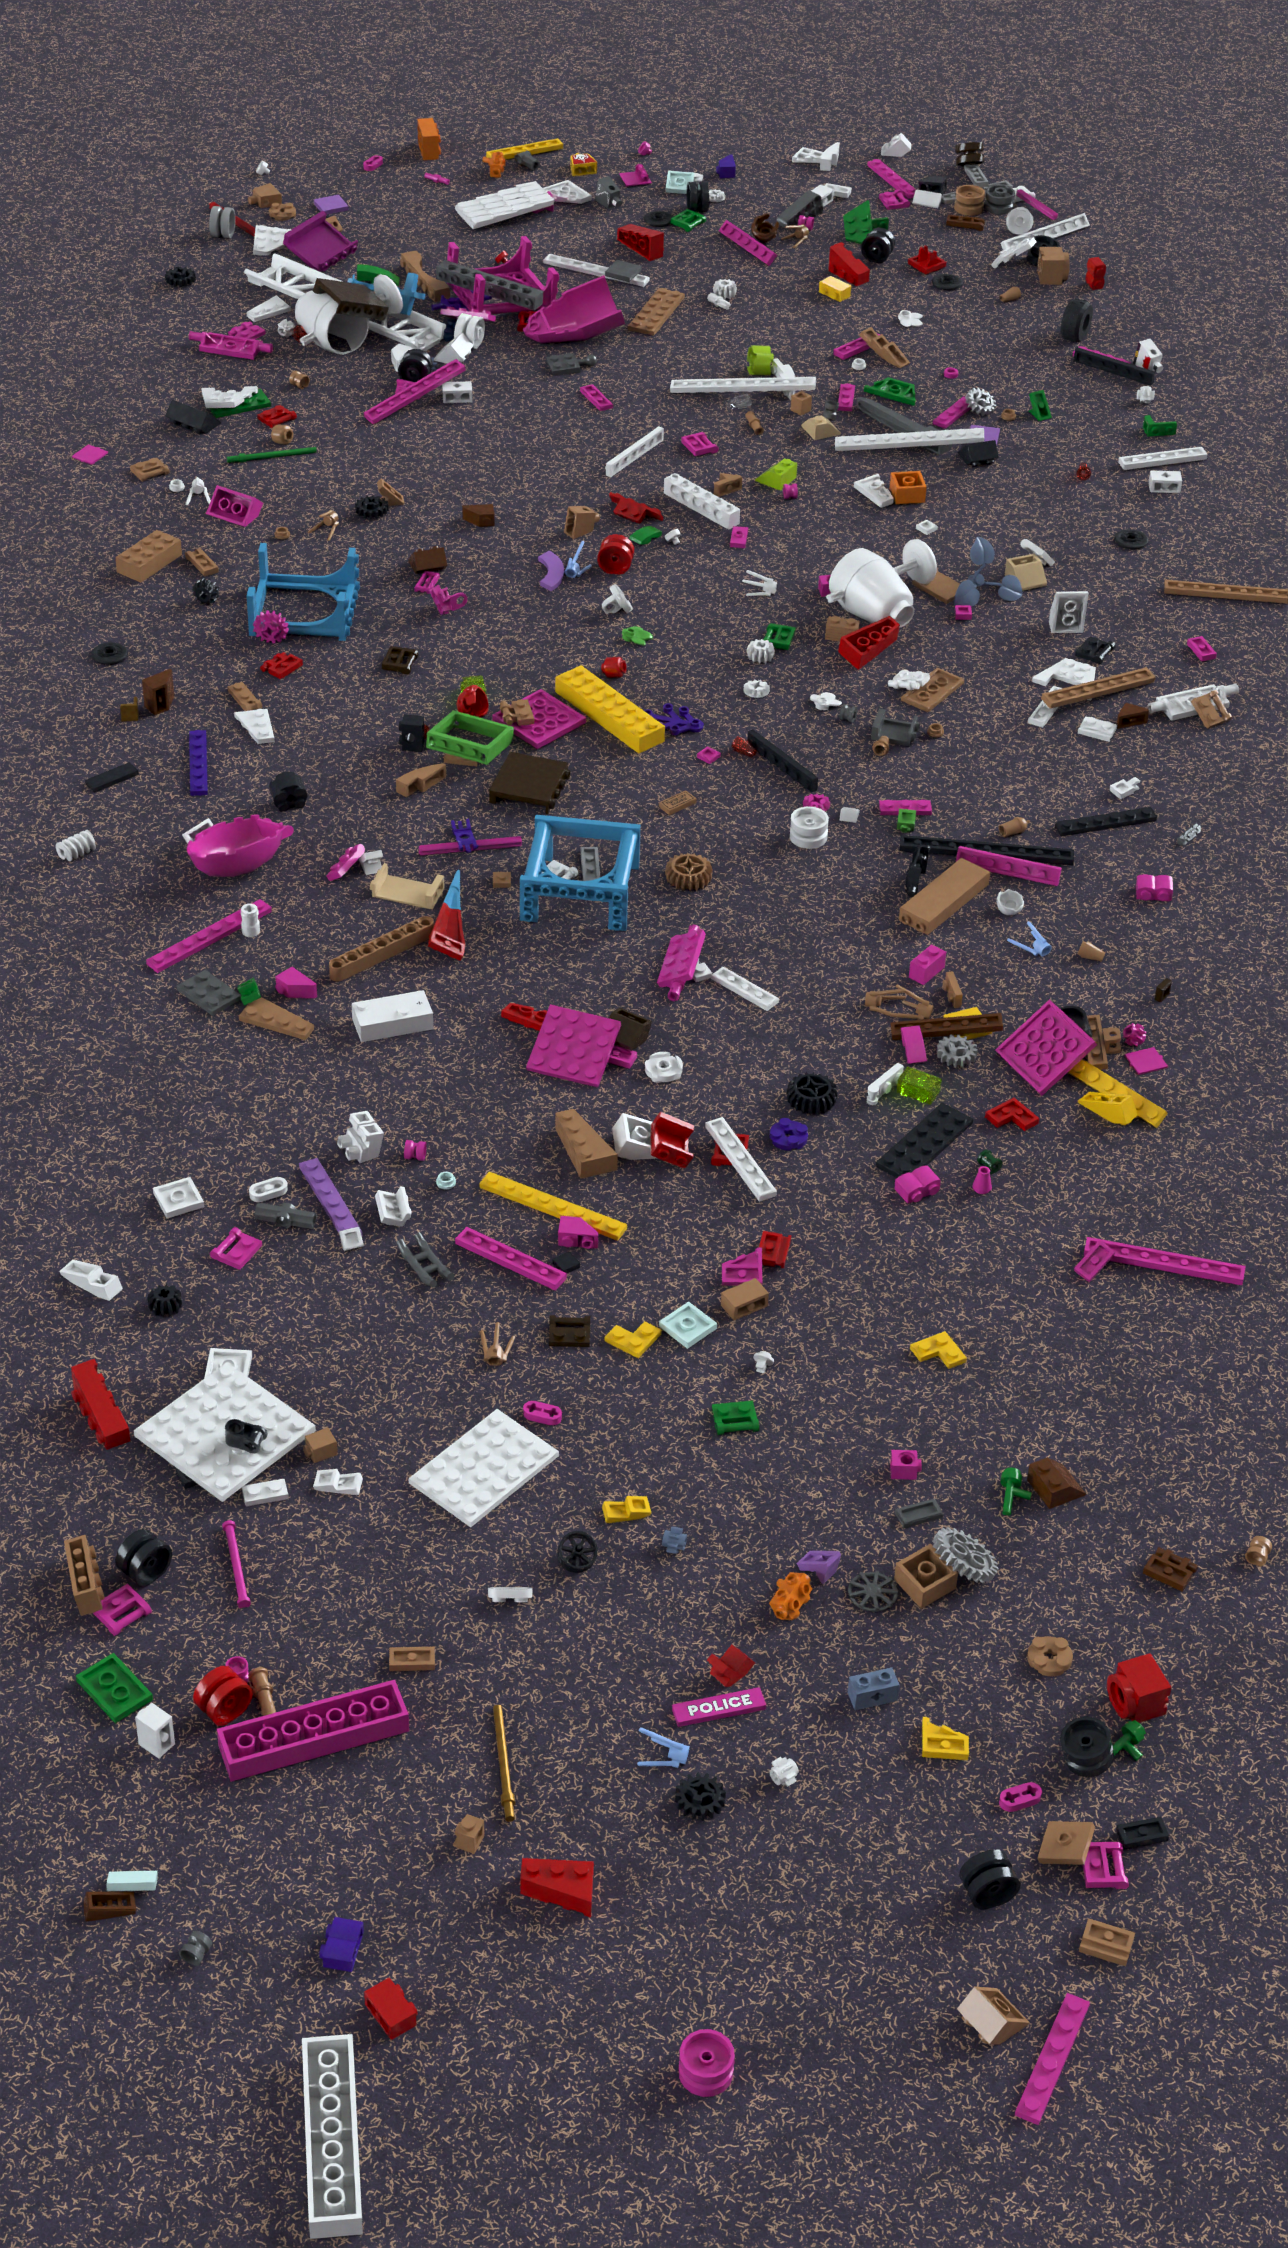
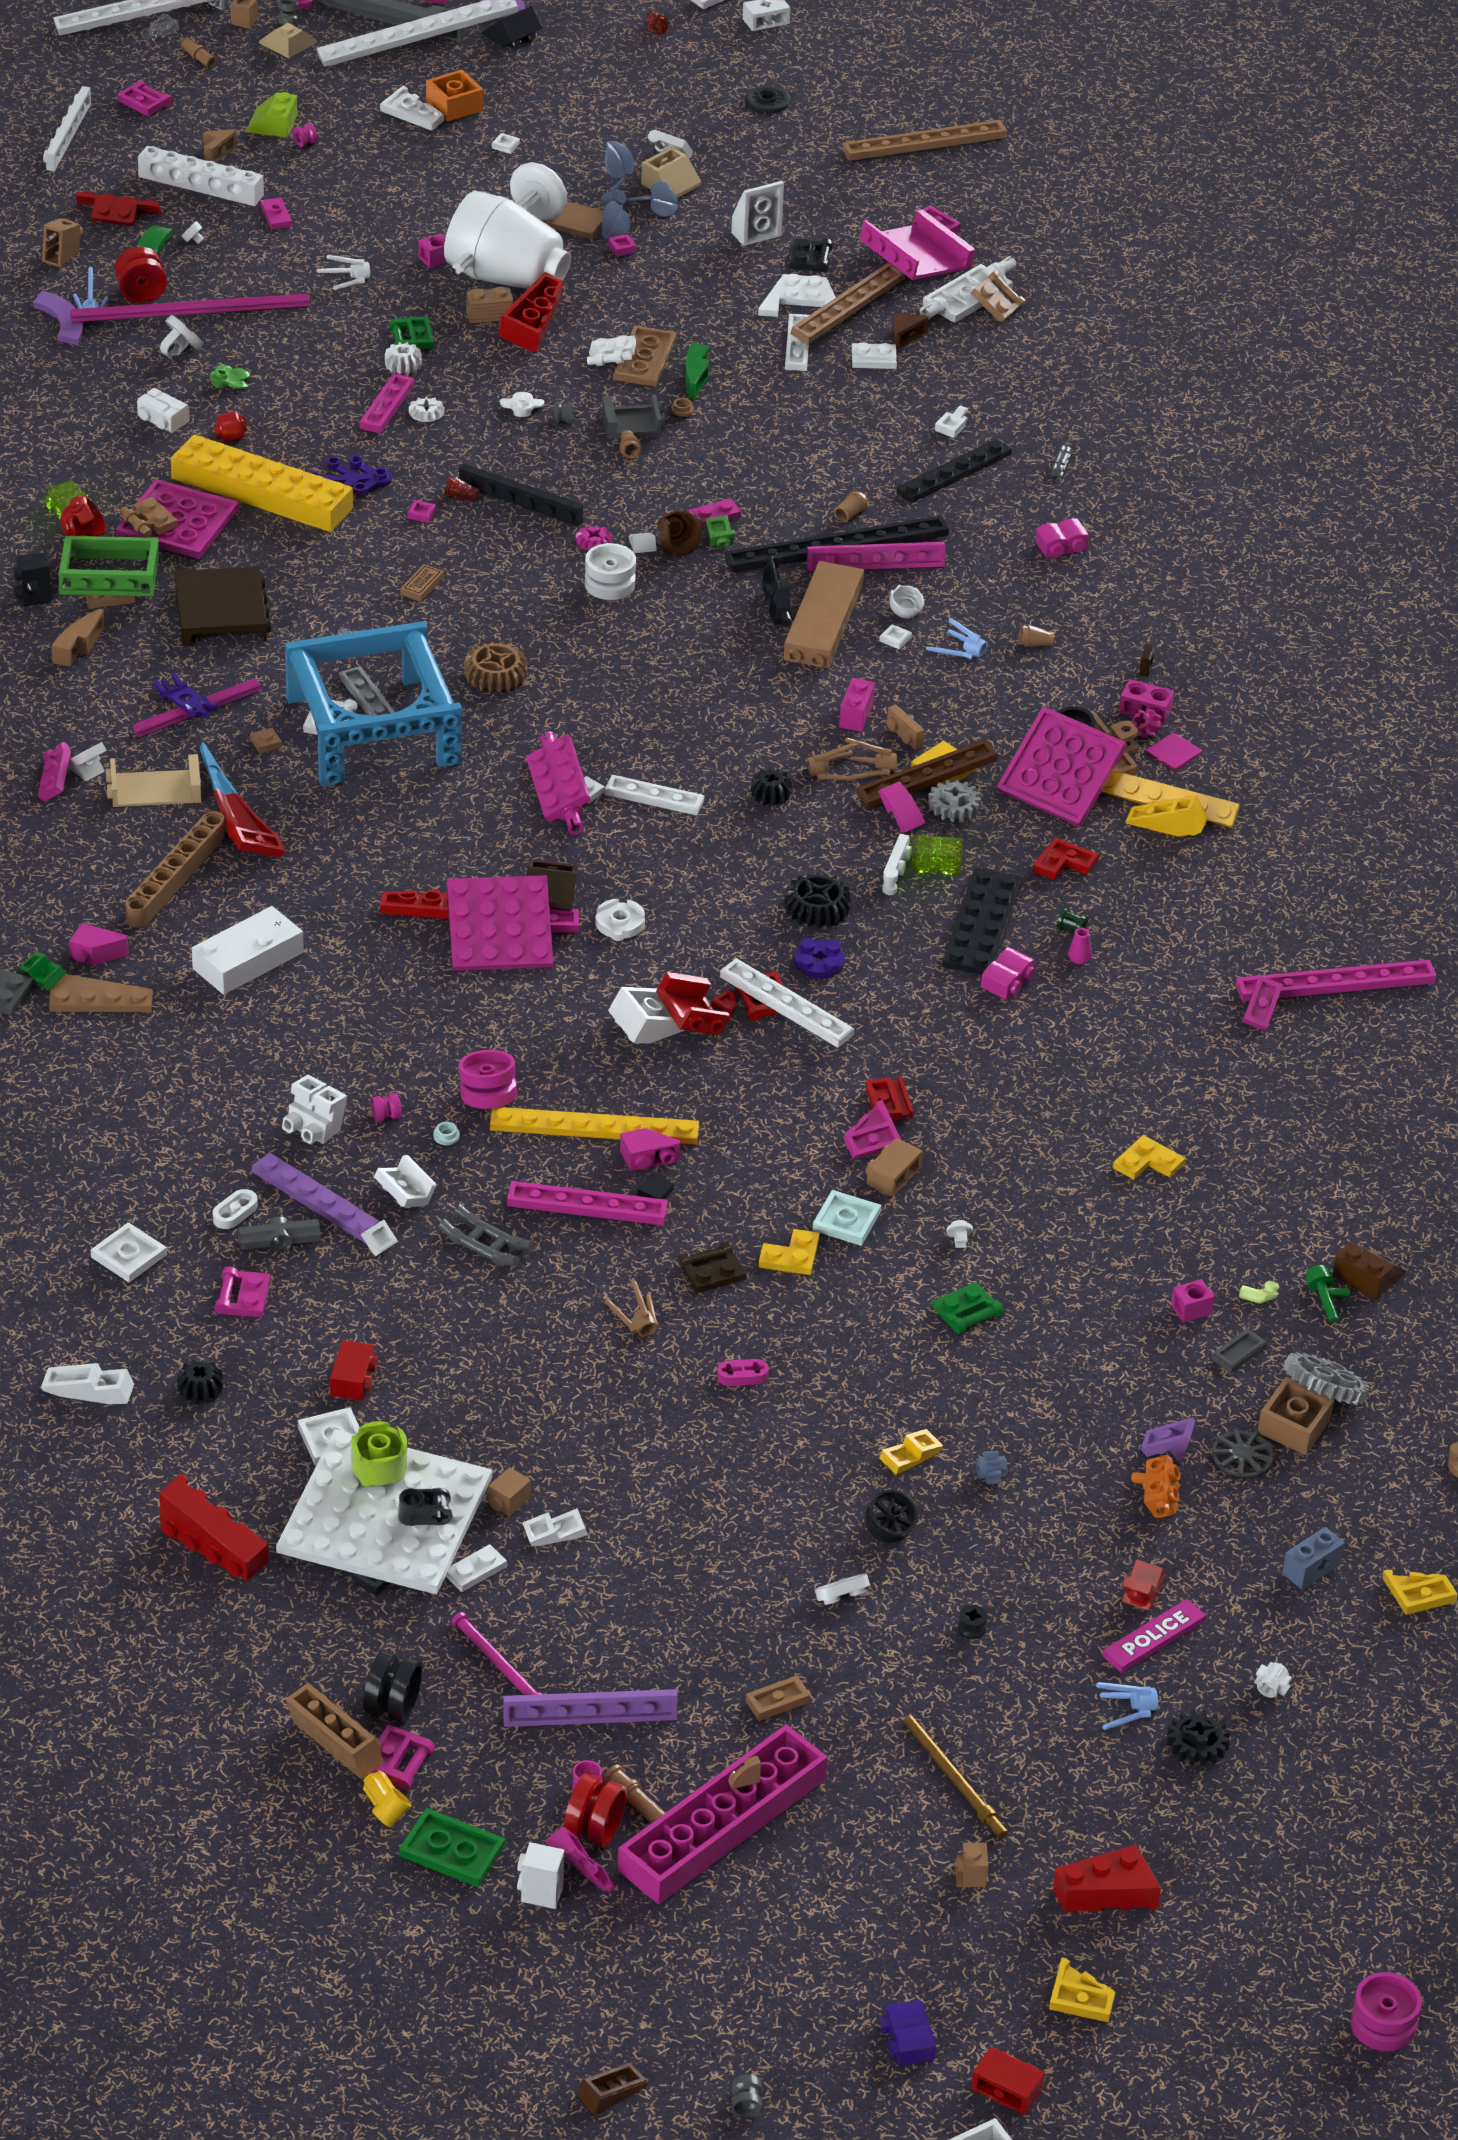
camera: 25 degrees left, 0 degrees up
(91, 1636) = (388, 1801): none -> yellow piece
(132, 1881) = (622, 2050): light aqua tile -> none
(184, 1718) = (579, 1859): none -> dark pink slope
(235, 1388) = (379, 1454): none -> lime brick
(271, 1325) = (353, 1370): none -> red brick
(274, 1620) = (590, 1708): none -> medium lavender plate
(338, 1706) = (746, 1774): none -> medium nougat tile
(483, 1467) = (714, 1457): white plate -> none
(487, 1961) = (1081, 1994): none -> yellow wing
(493, 1151) = (487, 1079): none -> dark pink wheel
(575, 645) = (163, 410): none -> white brick
(584, 1145) = (587, 1040): medium nougat wedge -> none
(588, 1650) = (972, 1621): none -> black wheel
(639, 584) = (189, 308): none -> dark pink axle
(701, 1146) = (725, 1002): none -> red tile
(731, 677) = (386, 403): none -> dark pink plate
(829, 1005) = (771, 786): none -> black gear
(875, 813) = (680, 531): none -> reddish brown helmet
(957, 1476) = (1262, 1295): none -> yellowish green arm
(961, 706) = (696, 369): none -> green slope
(989, 925) = (895, 636): none -> white tile
(1149, 1018) = (1142, 696): none -> dark pink brick
(1175, 664) = (920, 249): none -> dark pink panel

